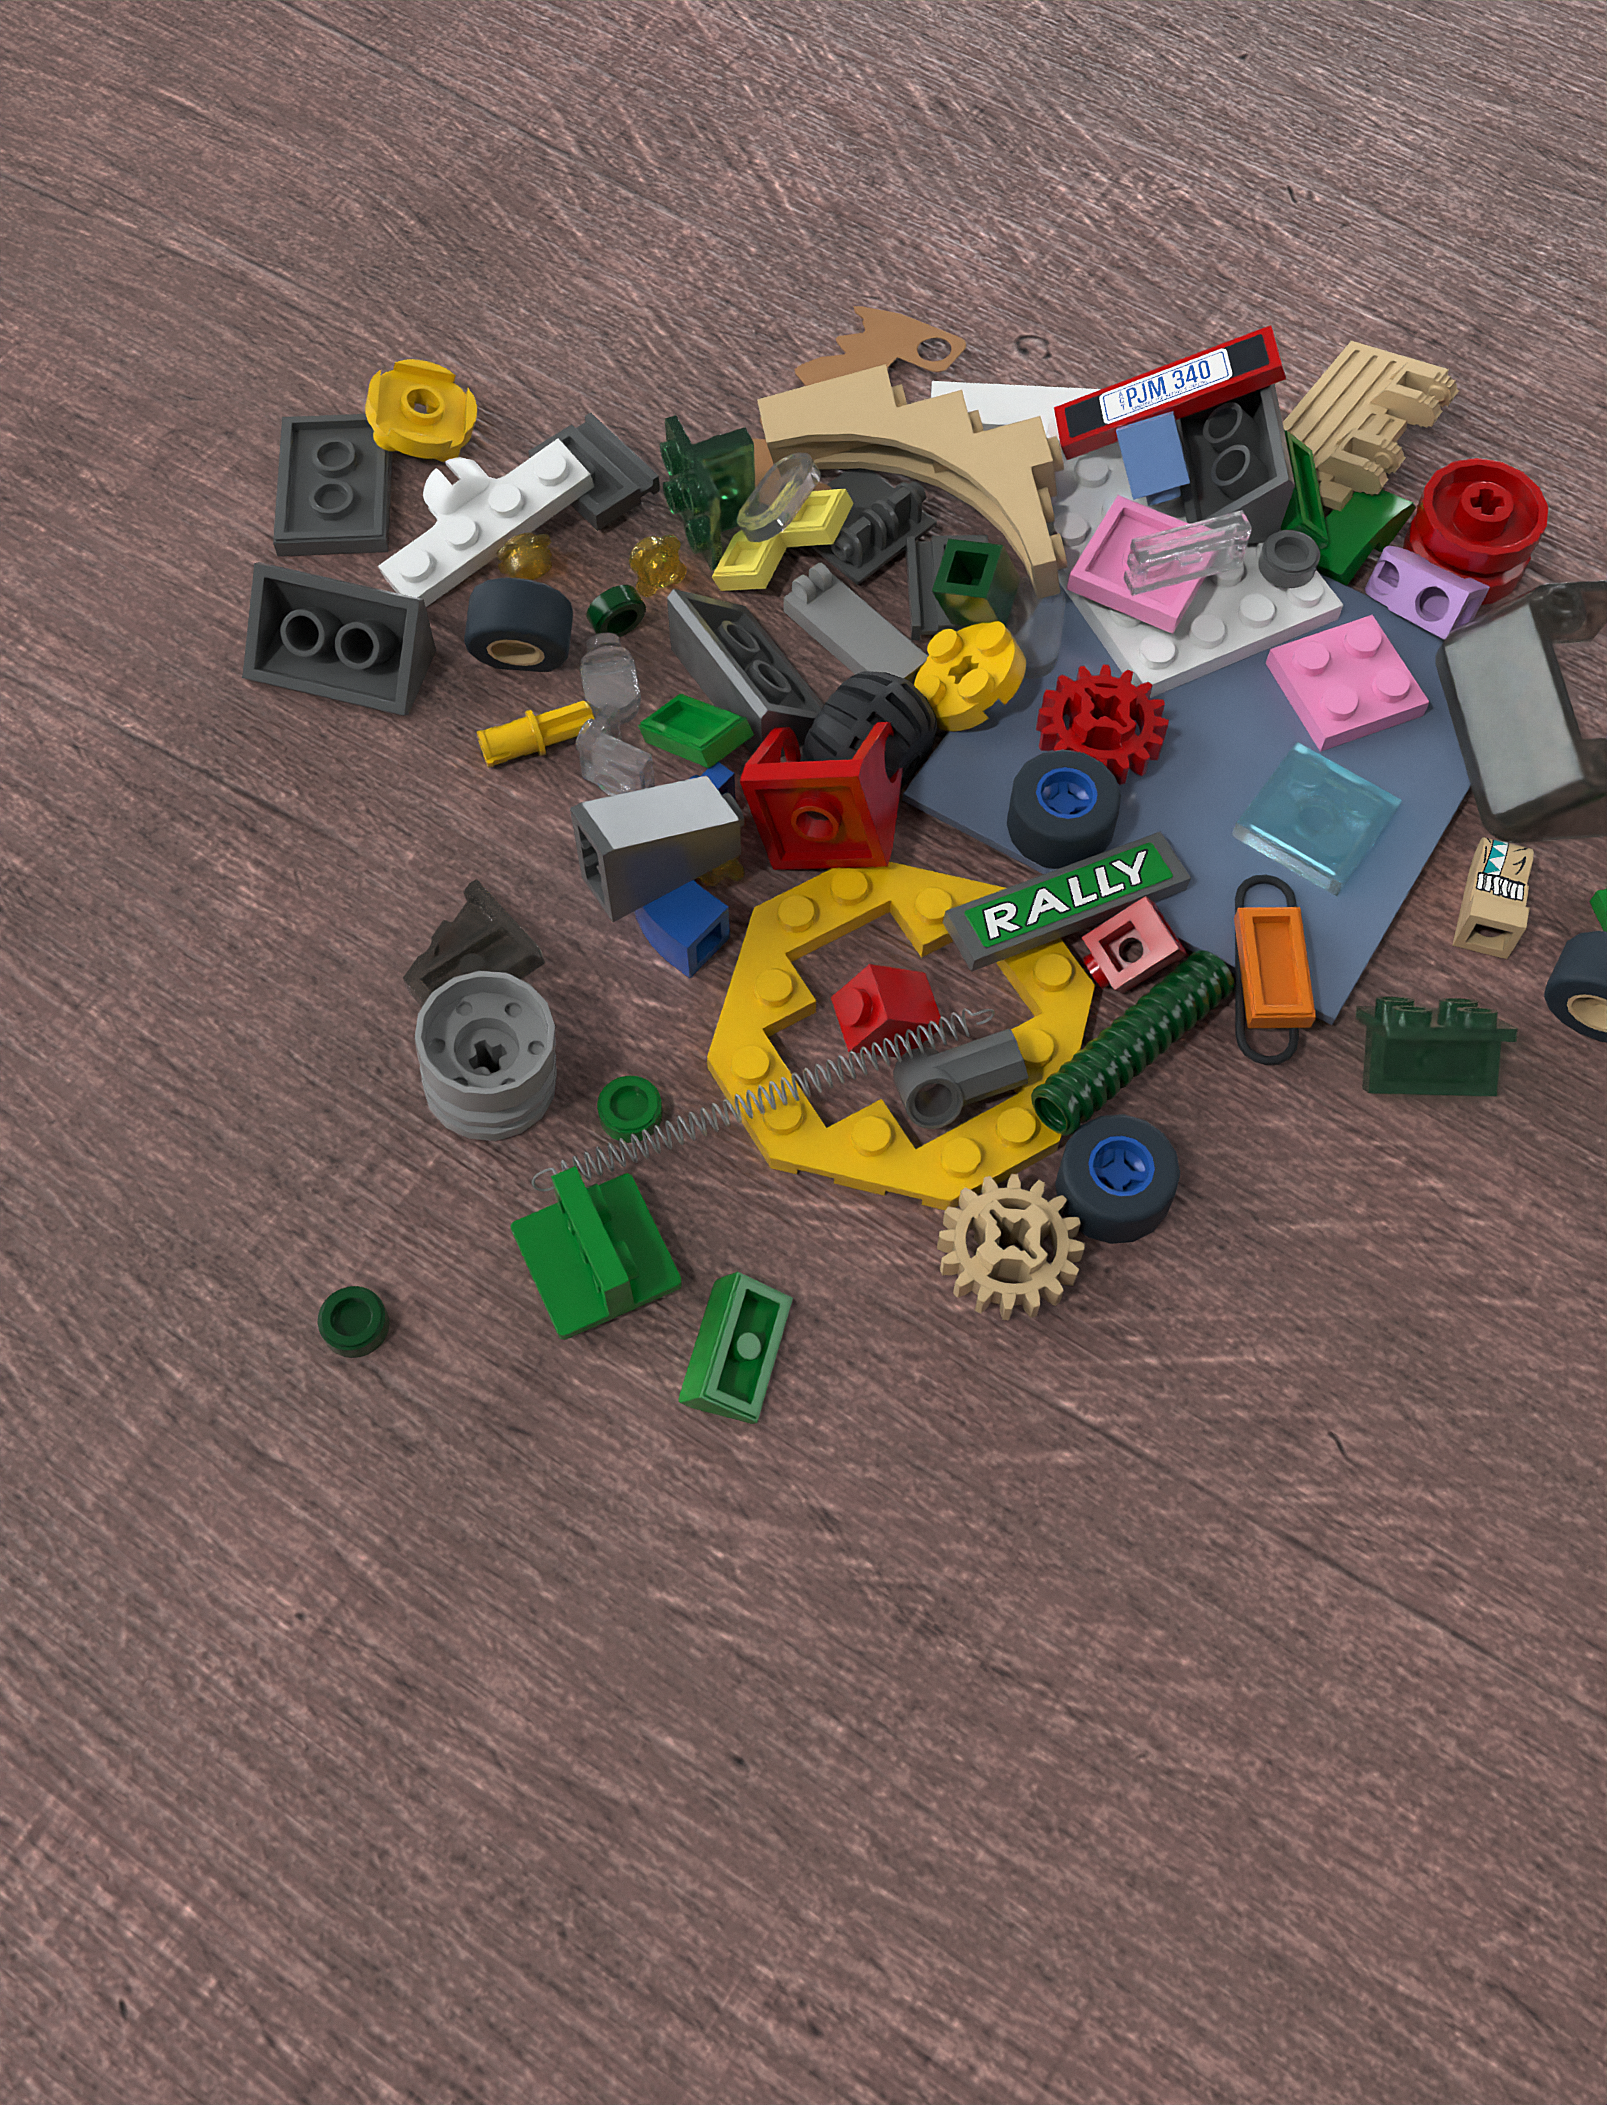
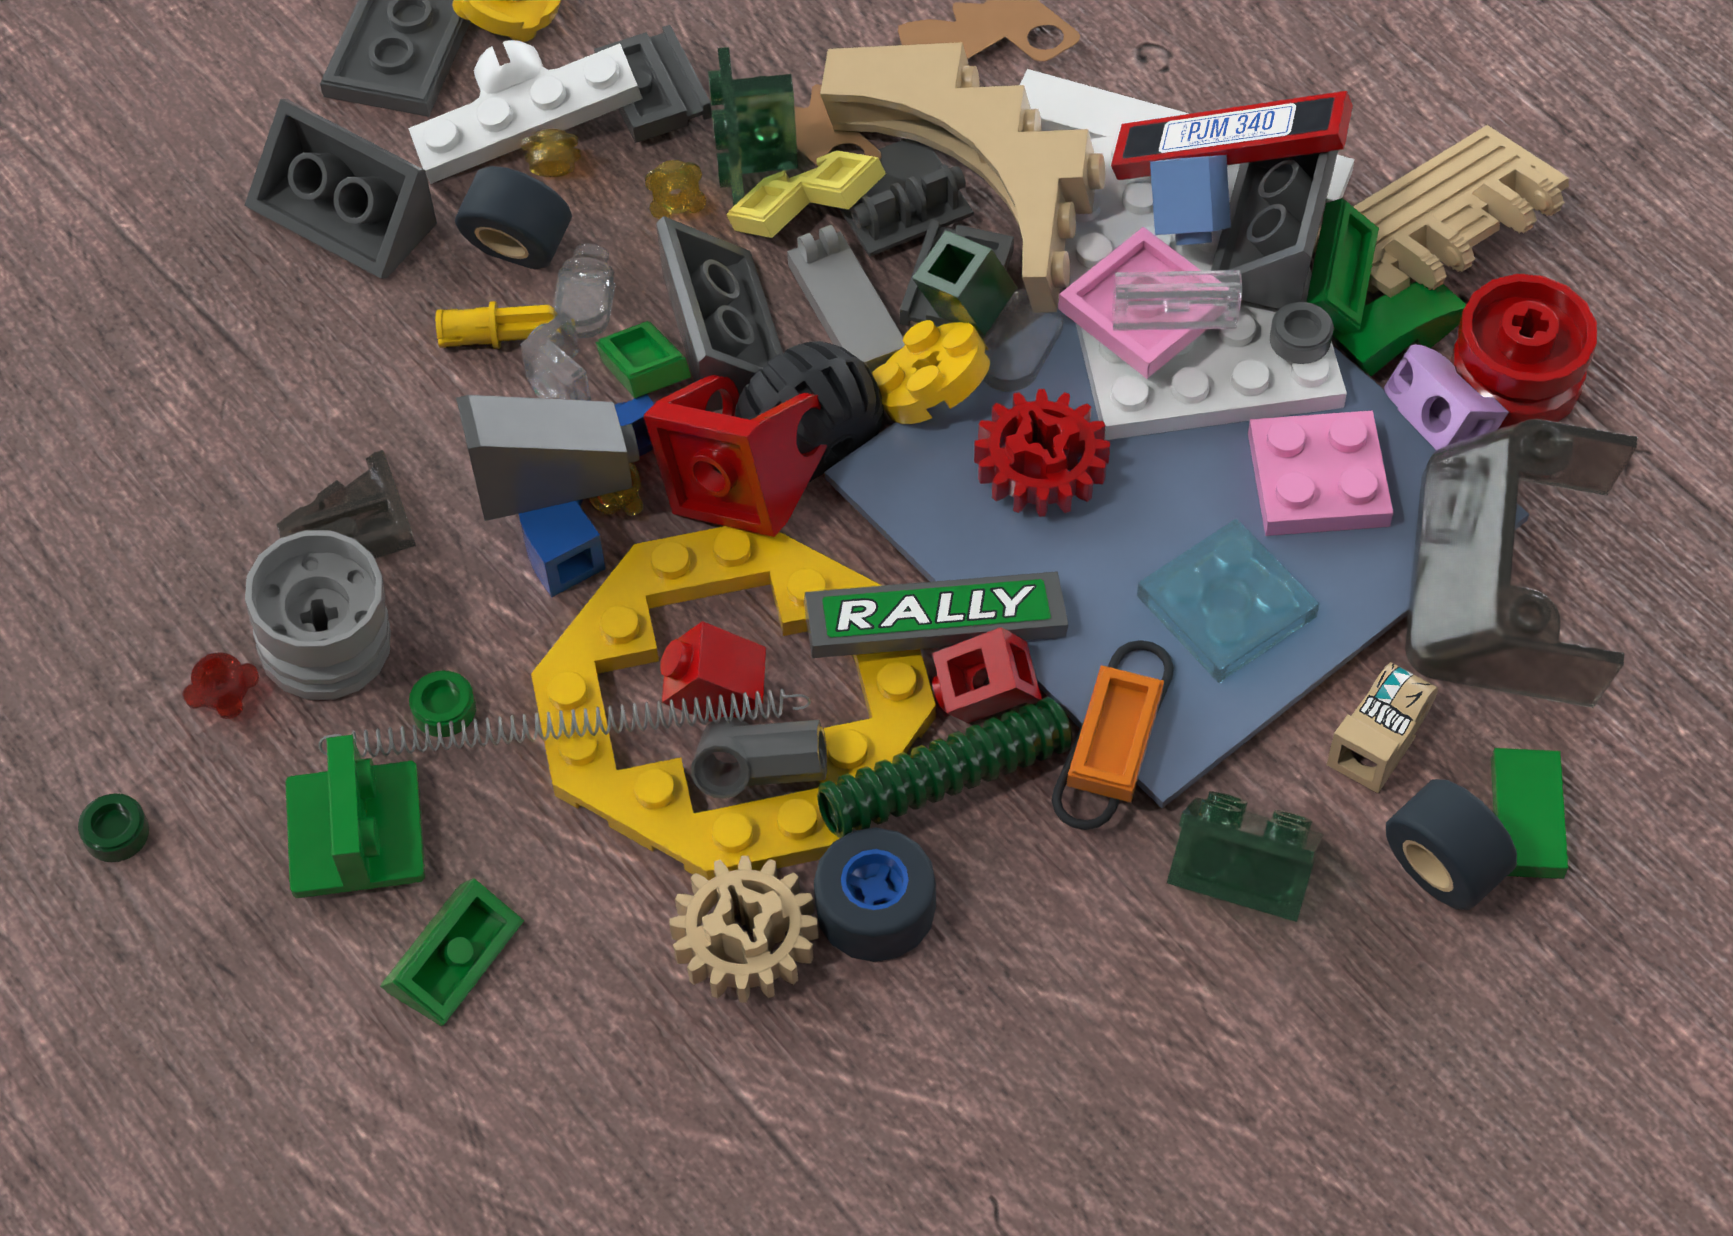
camera: 20 degrees right, 5 degrees down
(405, 1132) = (215, 670): none -> clear red plate
(616, 611) = (617, 226): dark green tile -> none
(778, 497) = (814, 150): clear tile -> none
(1063, 808) = (966, 523): black wheel -> none

